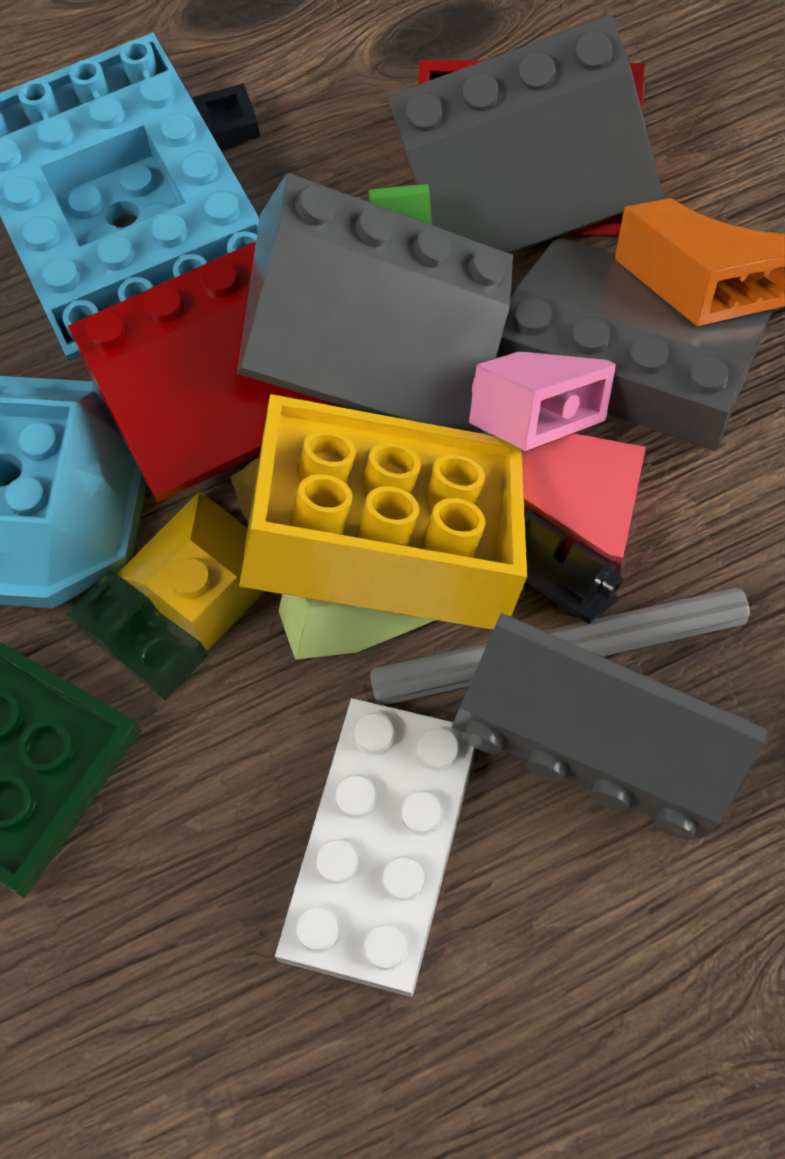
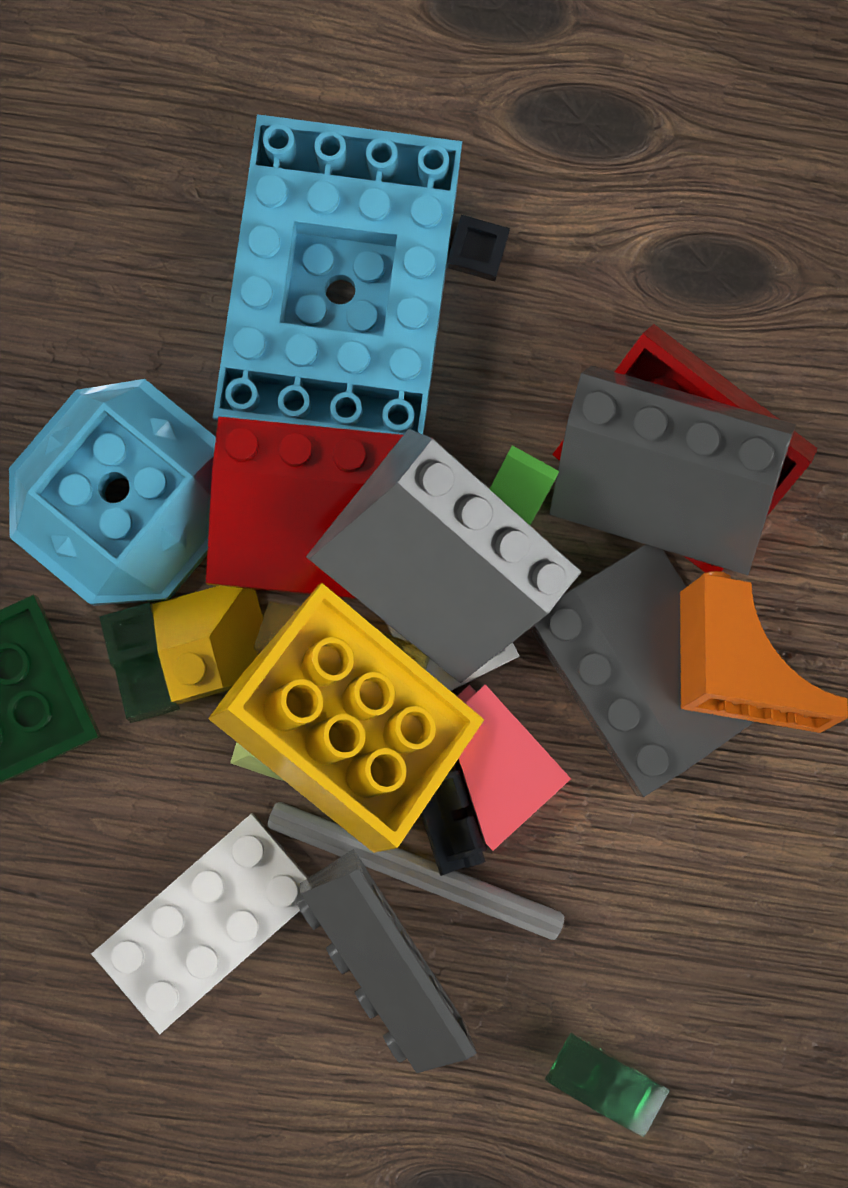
camera: 25 degrees right, 20 degrees up
(539, 396) = (519, 696): bright pink slope -> none

